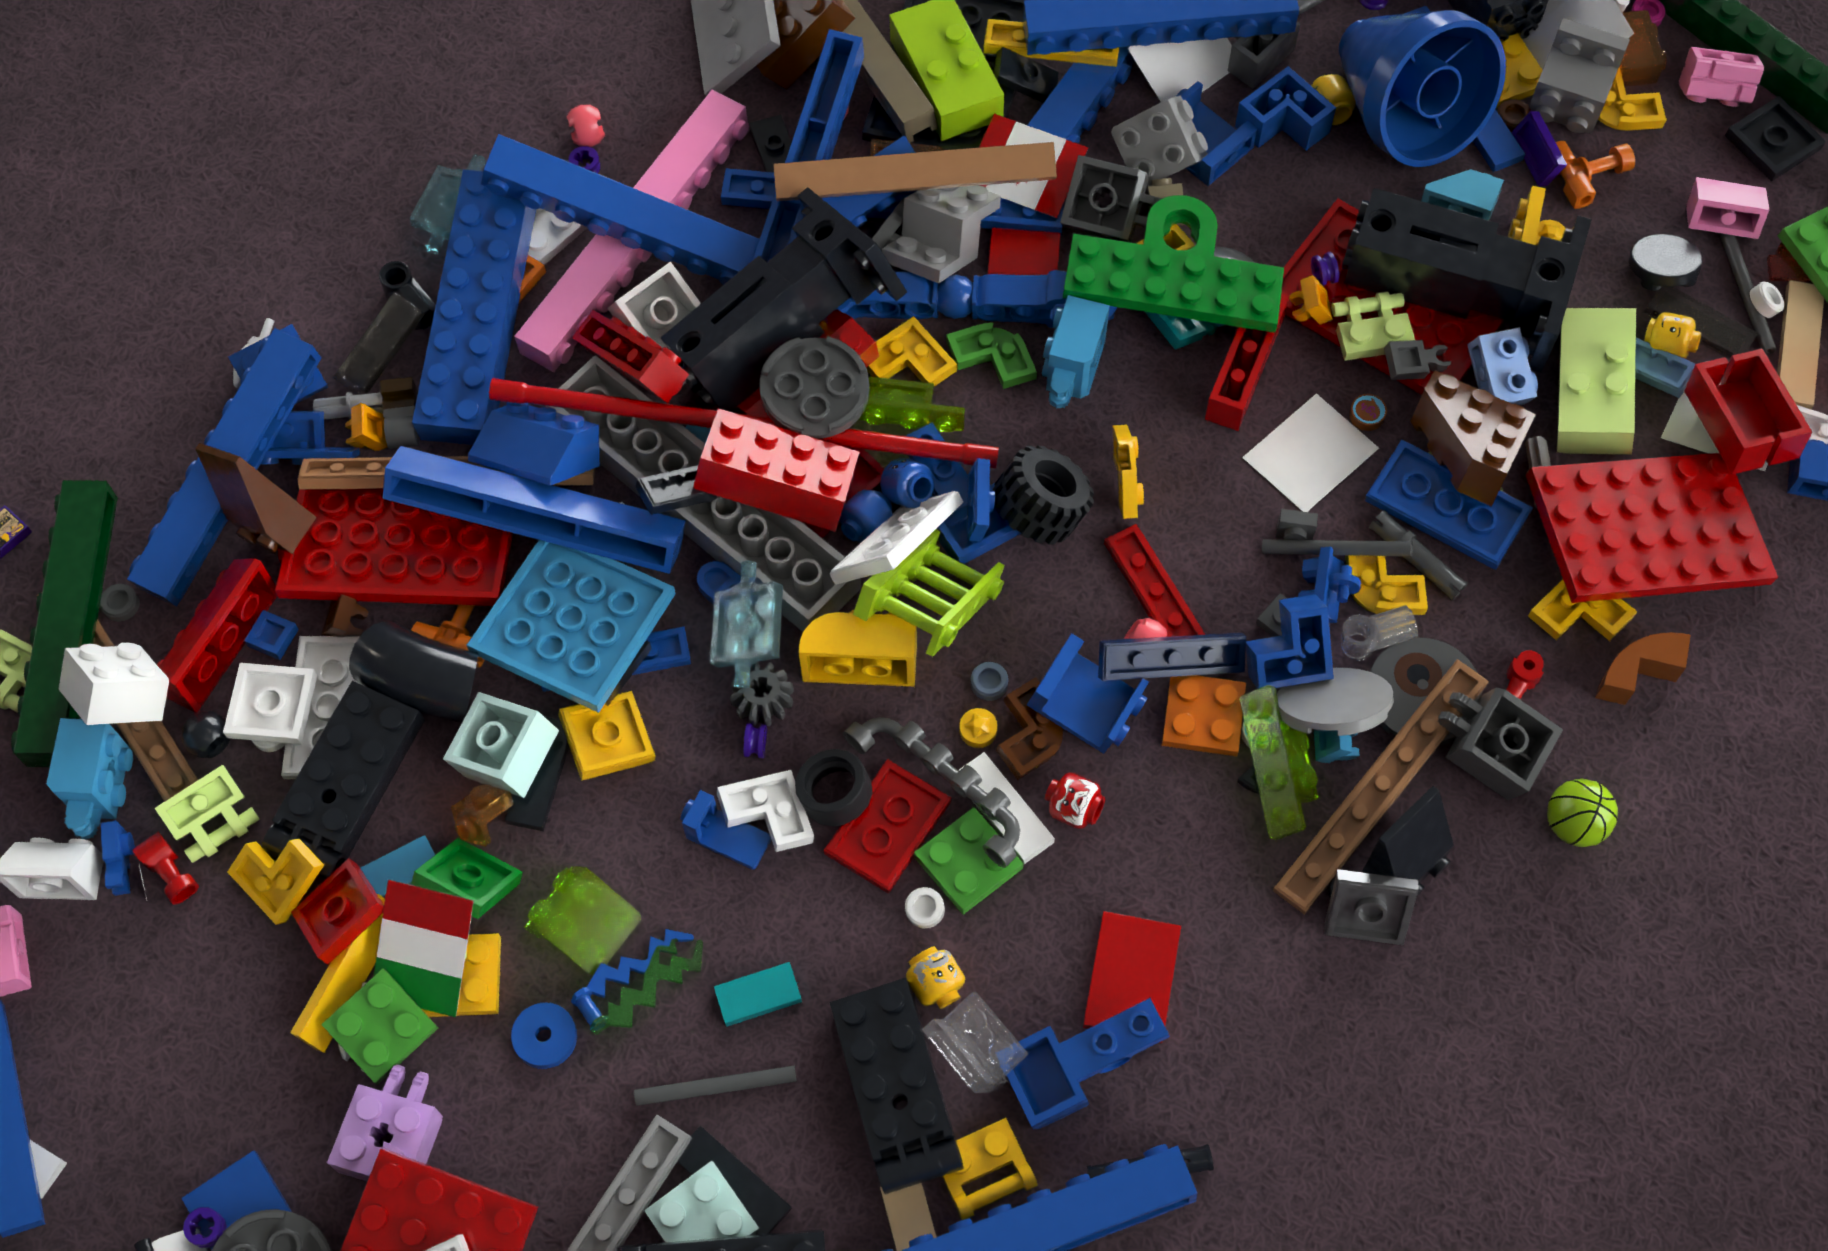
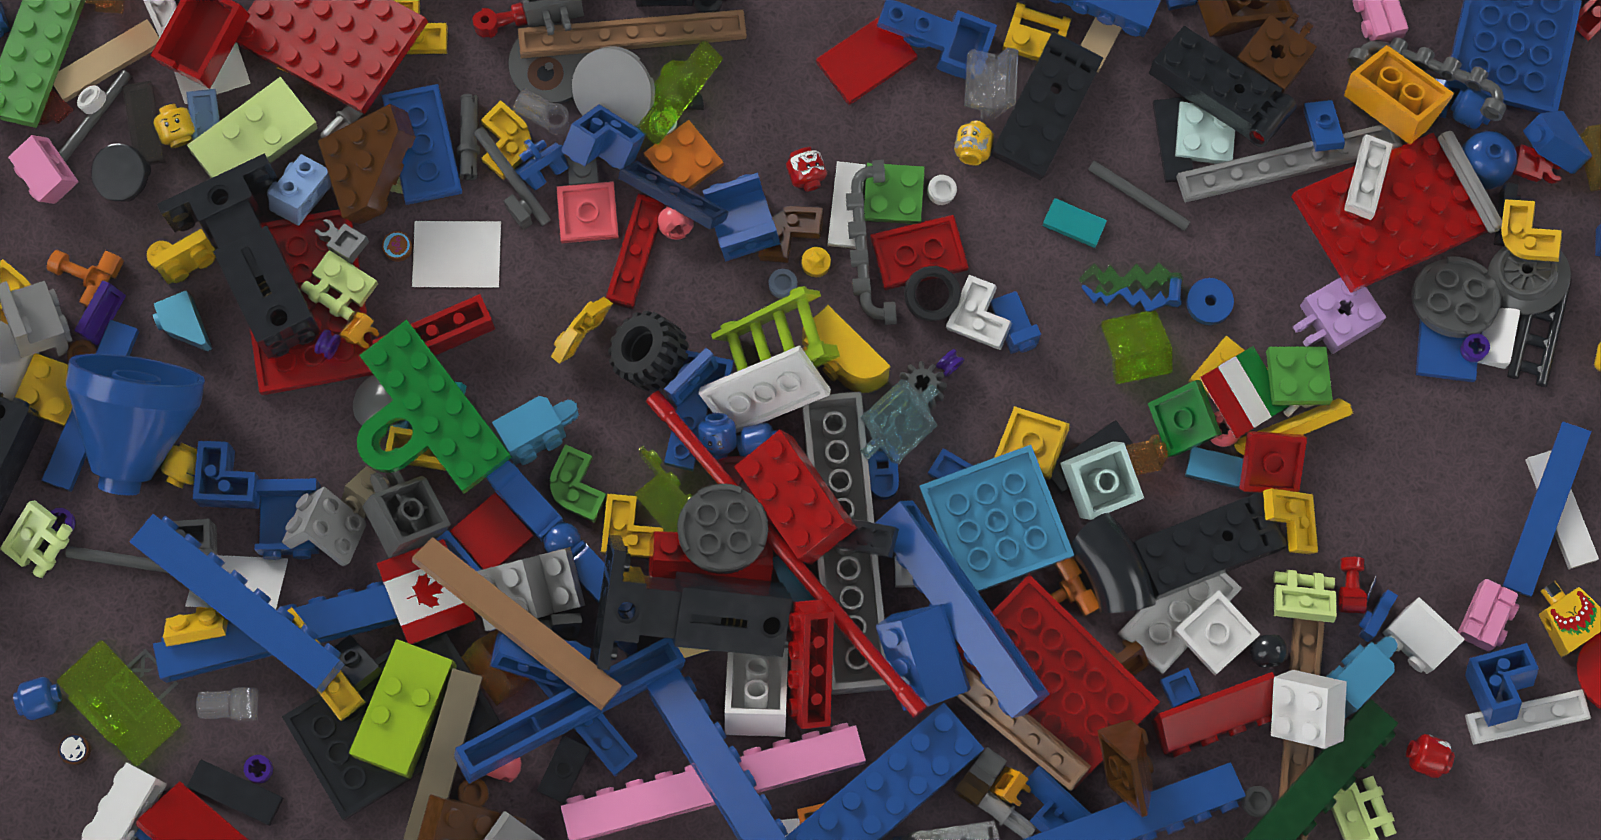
camera: 140 degrees left, 10 degrees up
(1237, 587) = (587, 212): none -> coral tile

